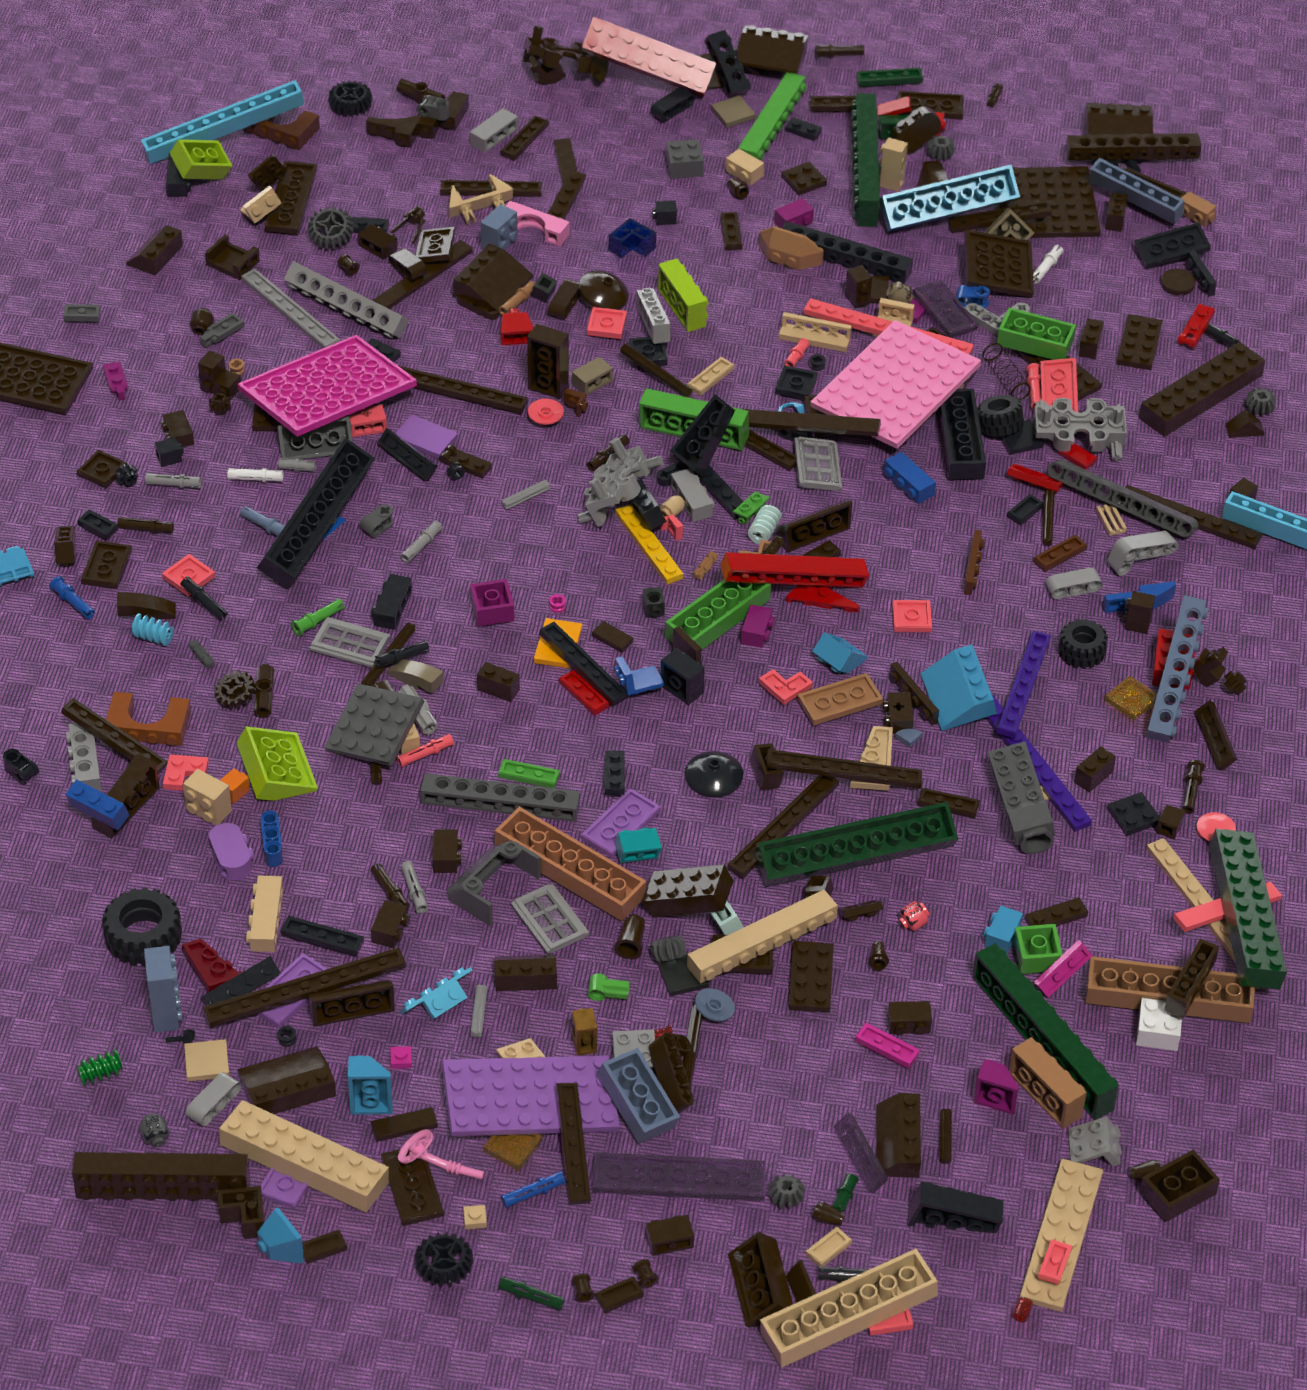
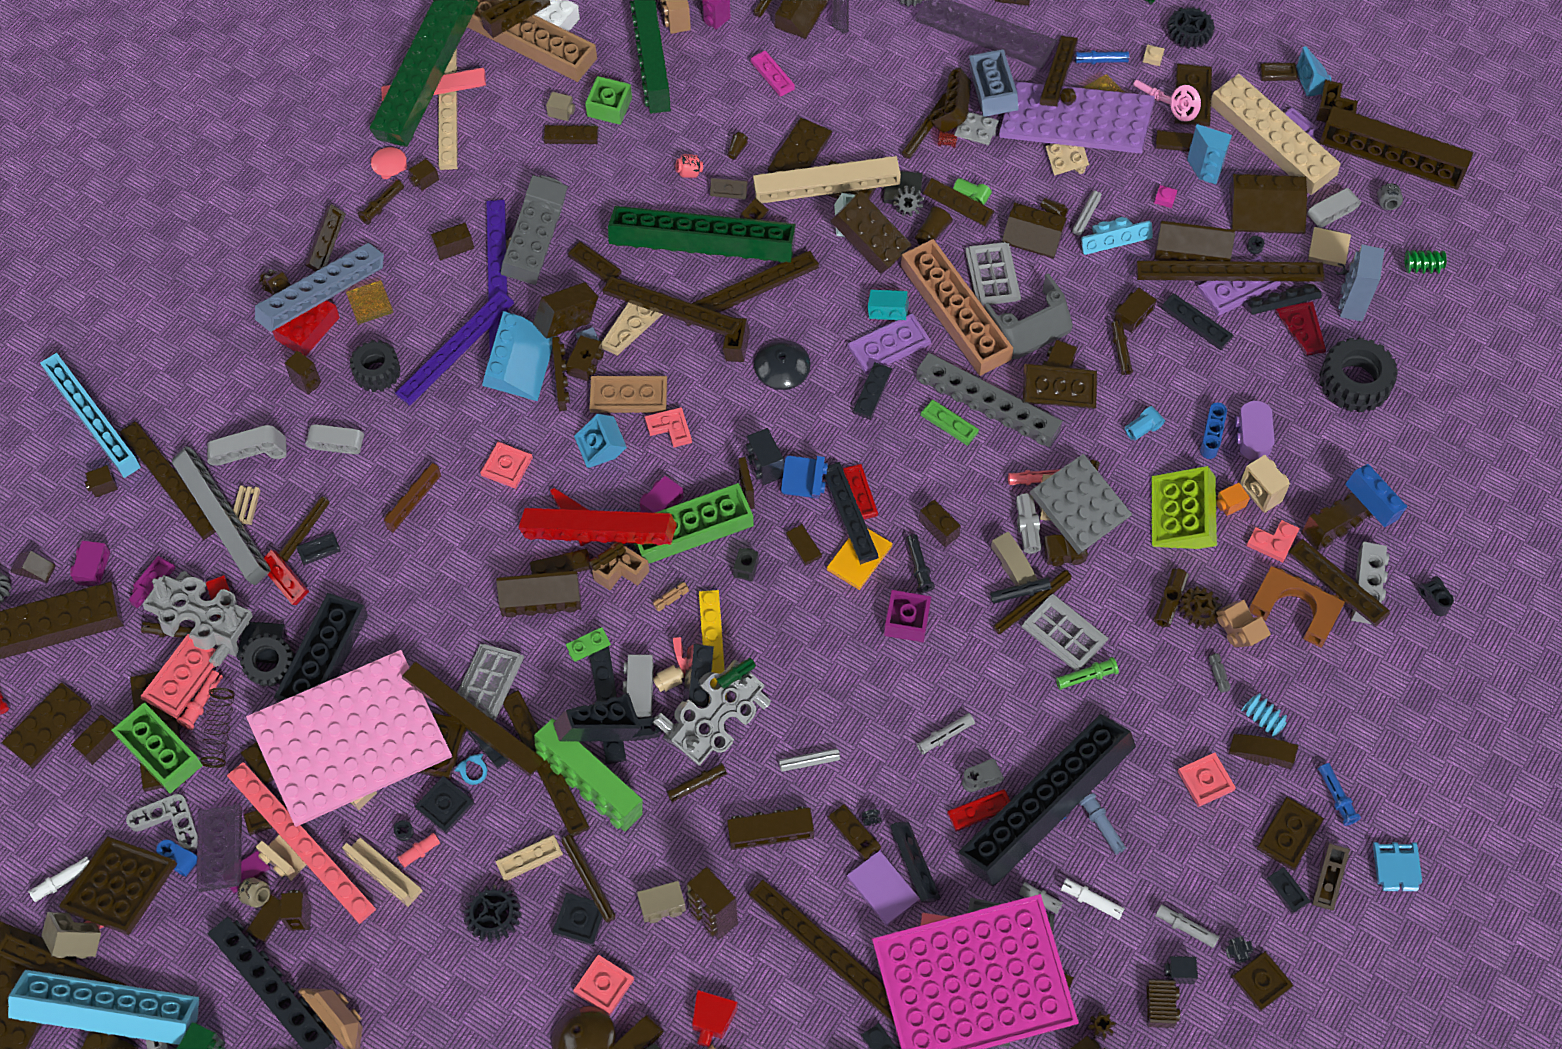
camera: 155 degrees left, 15 degrees up
(146, 525) = (1230, 867): dark brown pin -> none
(189, 677) = (1241, 626): none -> medium nougat brick
(197, 592) = (1204, 740): black pin -> none
(266, 913) = (1240, 357): tan brick -> none
(338, 828) = (1148, 421): none -> dark azure piece
(369, 504) = (978, 810): none -> red tile
(392, 601) = (1006, 662): black brick -> none
(420, 903) = (1099, 333): light grey pin -> none
(435, 818) = (1059, 386): none -> dark brown tile
(497, 645) = (921, 571): none -> black pin
(514, 1000) = (1054, 207): none -> dark brown cone
(532, 440) = (770, 828): none -> dark brown brick
(545, 411) = (734, 857): coral dish -> none
(547, 1096) = (1068, 96): none -> dark brown plate
(557, 599) = (836, 609): dark pink bush -> none
(576, 400) = (692, 862): reddish brown bracket -> none
(584, 1031) = (1011, 151): pearl gold brick -> none
(609, 485) = (736, 673): none -> dark green axle
(613, 971) = (958, 202): none -> dark brown plate
(653, 315) = (550, 959): light grey brick -> none
(682, 295) = (500, 980): lime brick -> none
(714, 1004) = (893, 145): sand blue dish -> none
(715, 334) = (509, 902): none -> black gear
(764, 524) = (586, 617): light aqua piece -> none
(909, 477) = (408, 624): blue brick -> none
(909, 1017) = (743, 87): dark brown brick -> none
(938, 725) = (565, 310): none -> dark brown brick
(1003, 928) = (623, 131): dark azure brick -> none
(1059, 553) = (321, 484): reddish brown tile -> none
(1063, 968) = (589, 70): dark pink plate -> none
(1085, 931) = (560, 106): none -> dark tan brick
(1133, 814) = (446, 198): black plate -> none
(1141, 445) = (144, 584): none -> magenta hinge
(1162, 591) = (281, 396): blue slope -> none
(1199, 439) = (90, 563): none -> magenta brick

